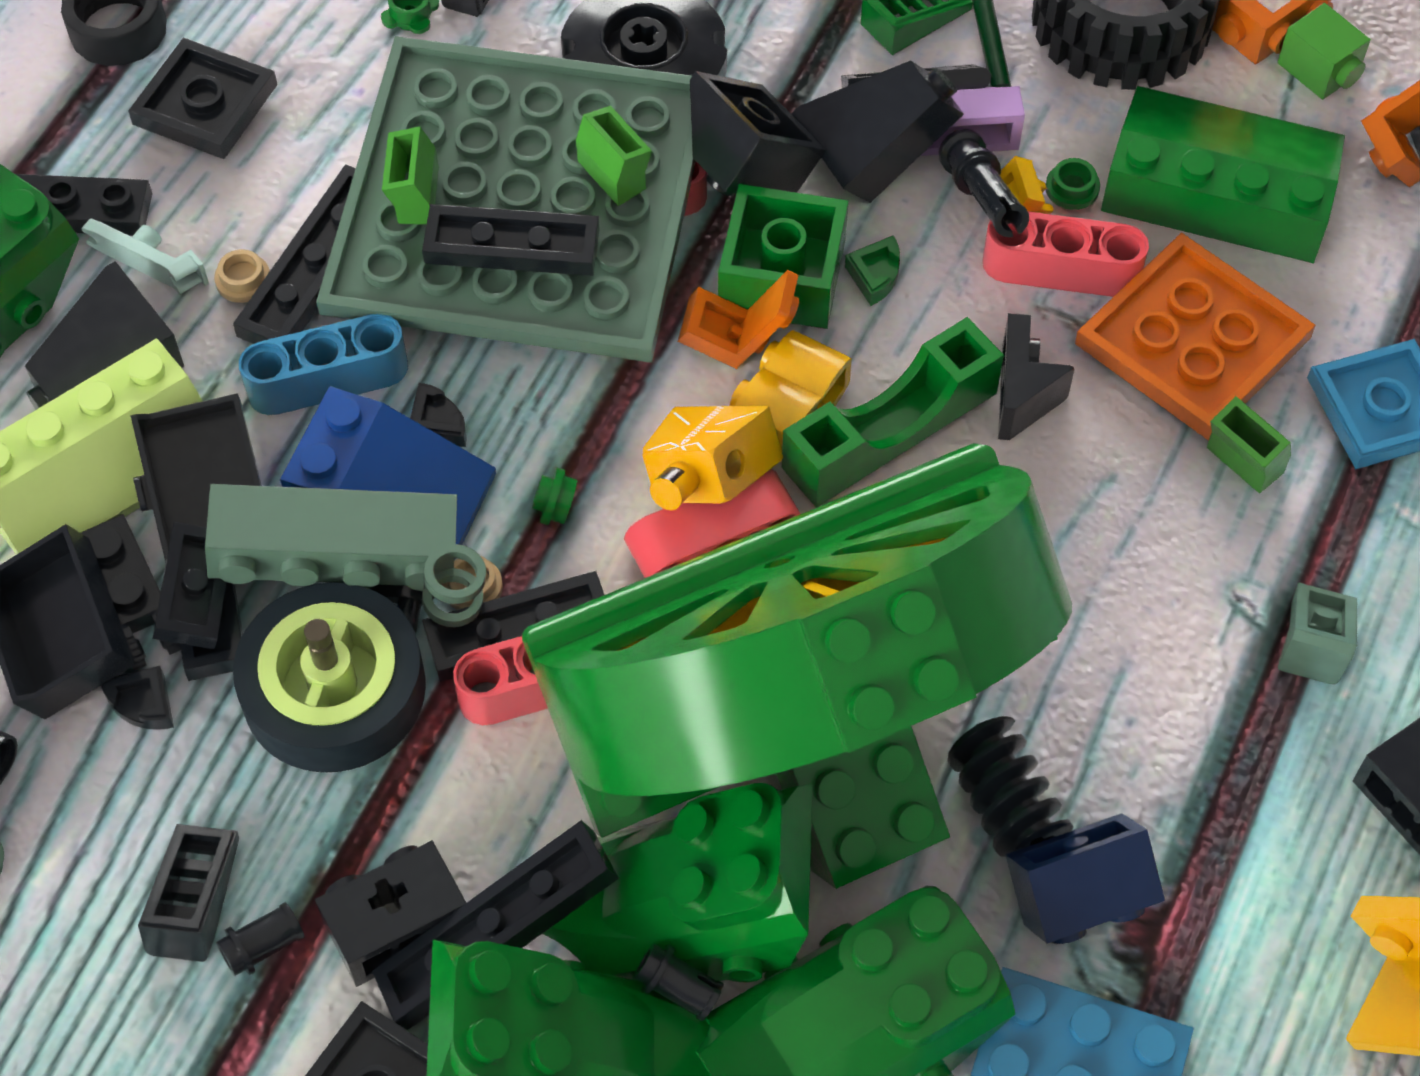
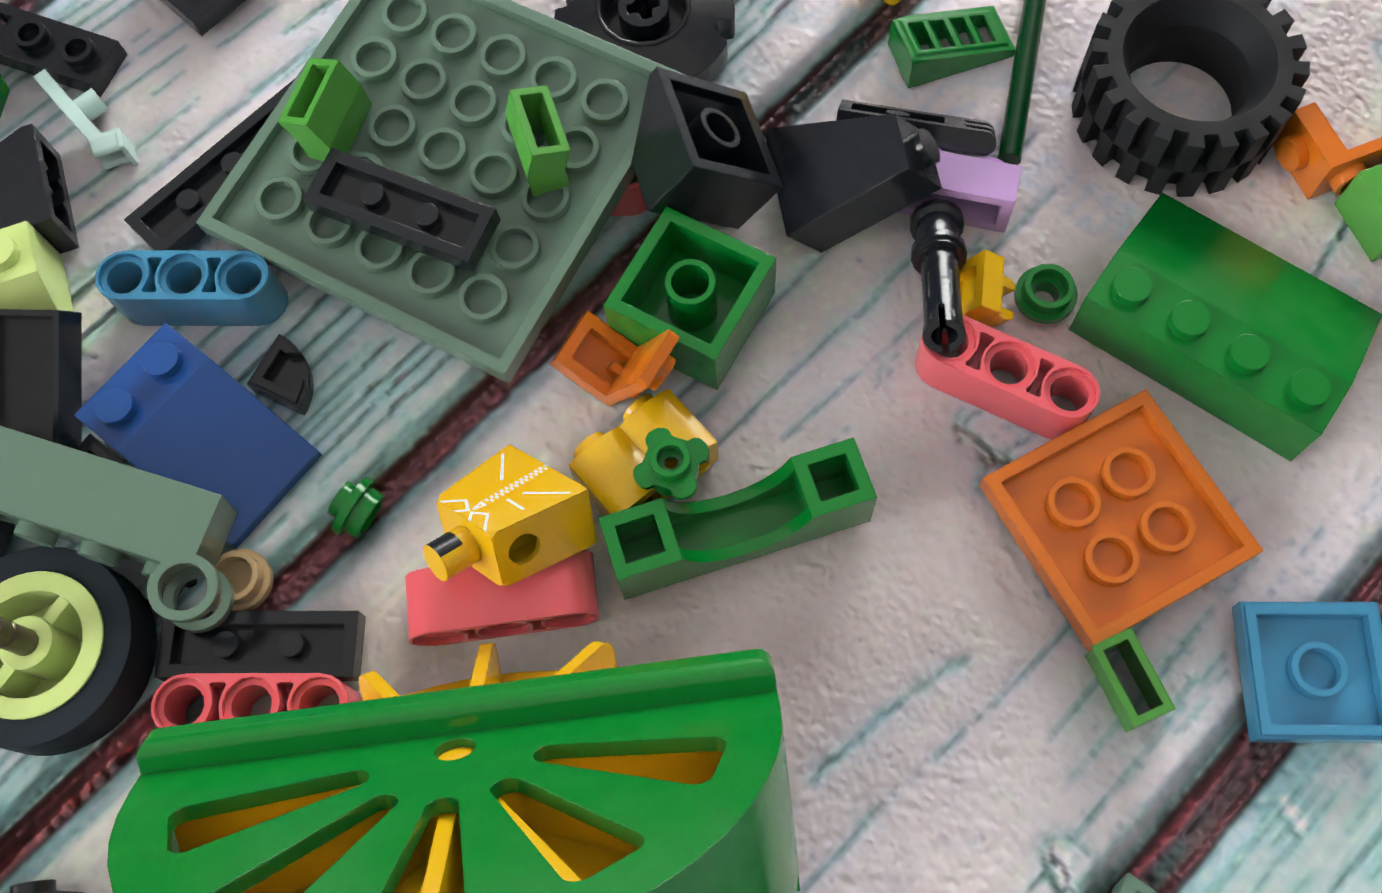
camera: 25 degrees right, 10 degrees up
(240, 275) = (159, 163): tan plate -> none
(825, 389) = (678, 481): none -> green plate
(875, 268) = (796, 333): green tile -> none
(1026, 385) = (899, 531): black slope -> none

